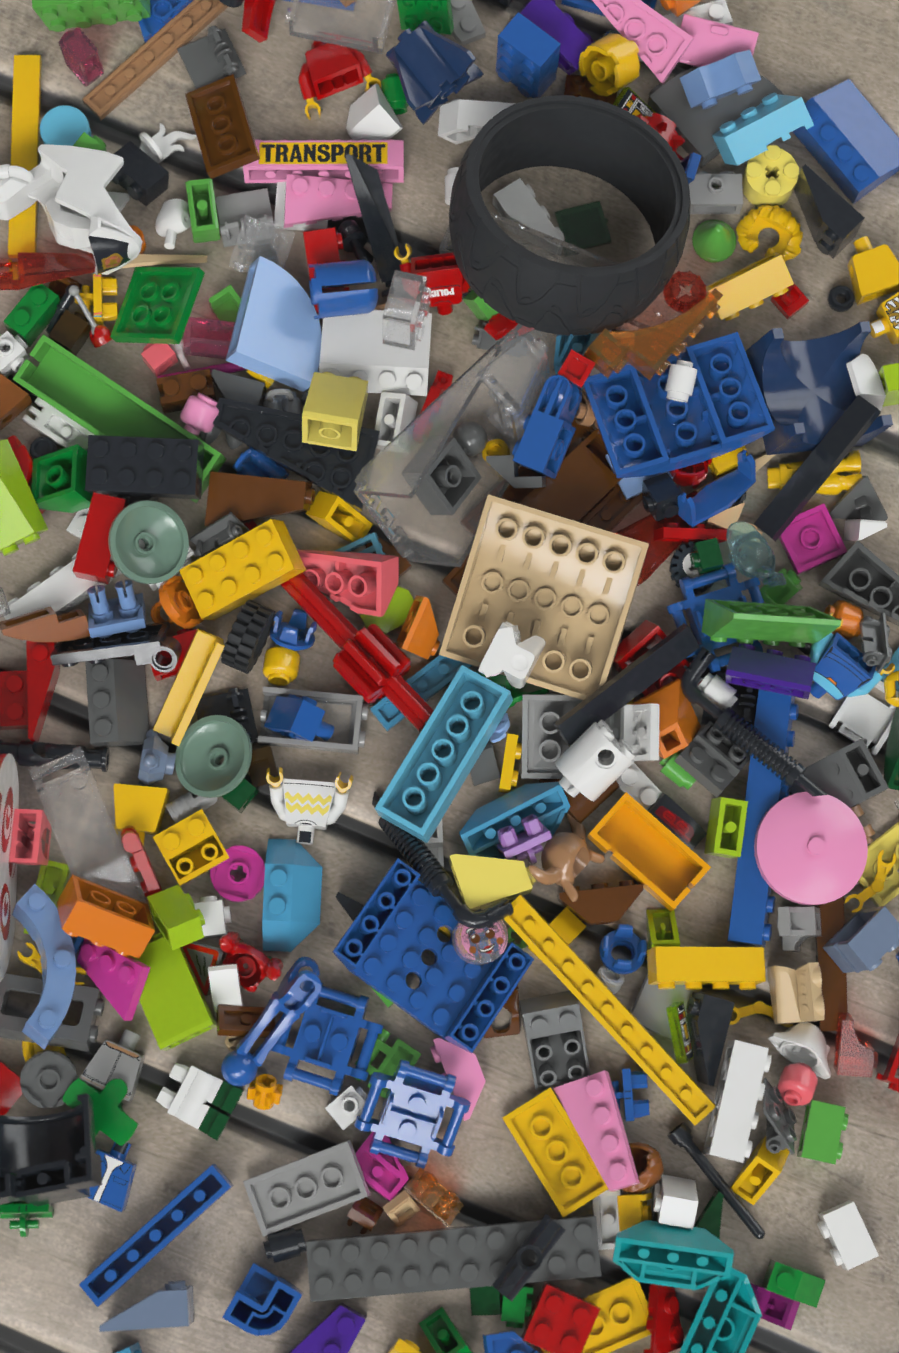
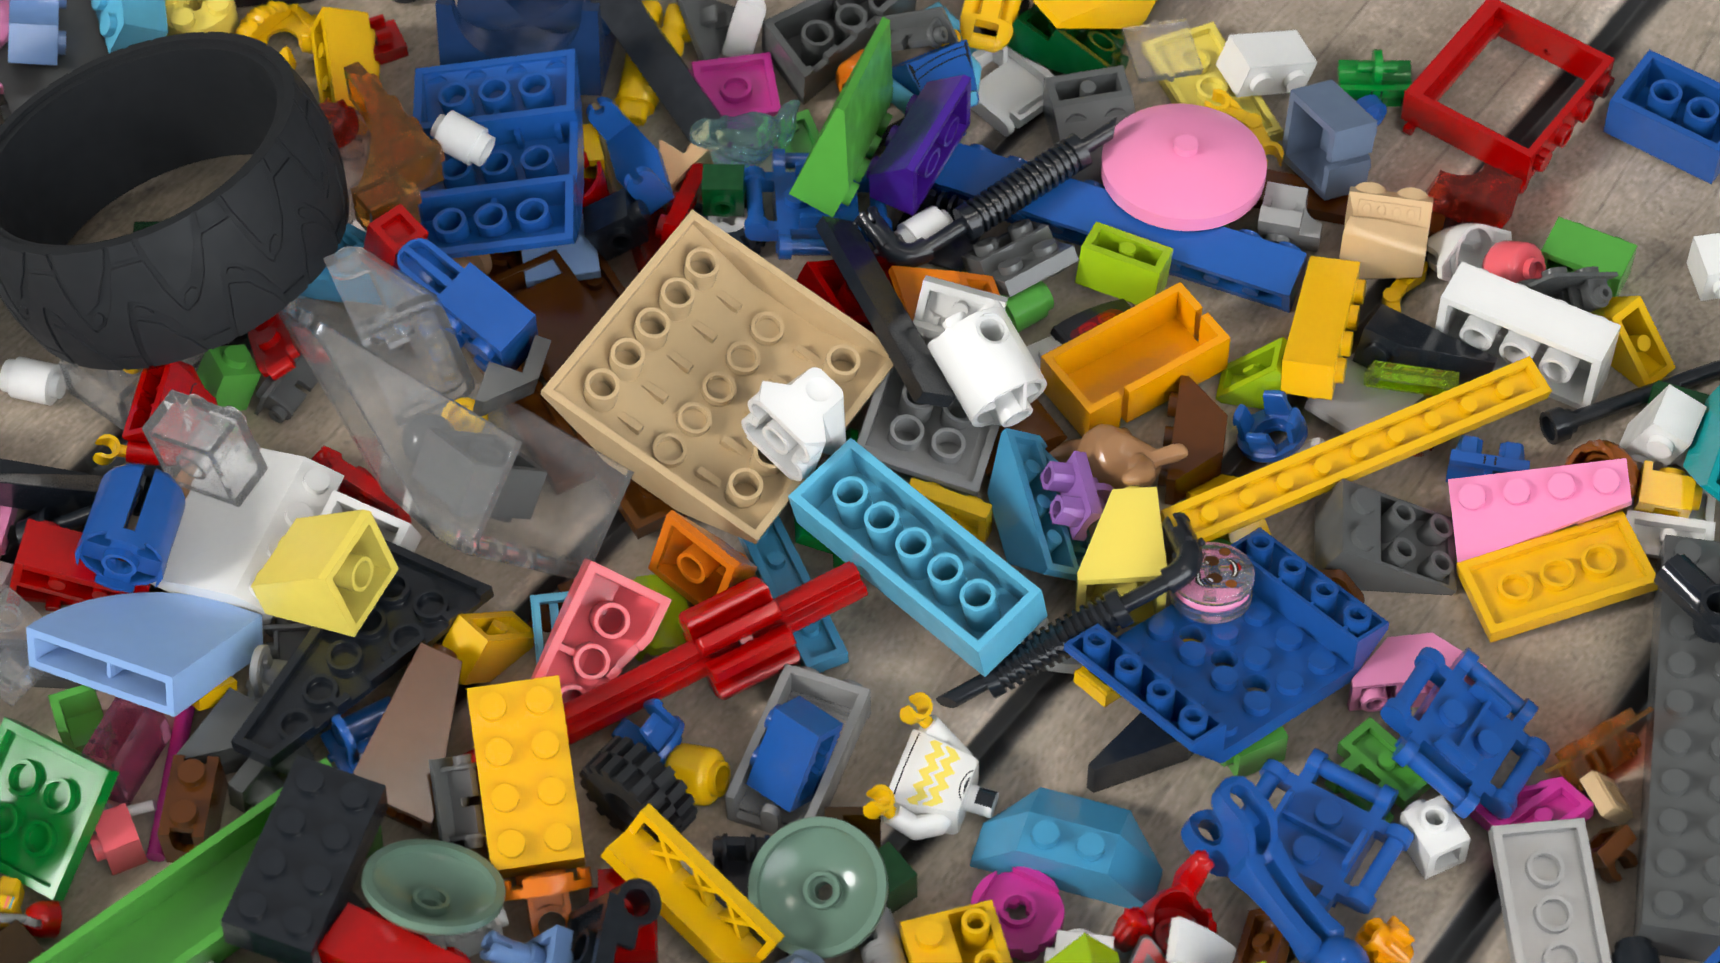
camera: 70 degrees left, 25 degrees down
(199, 414) = (243, 777): bright pink head -> none

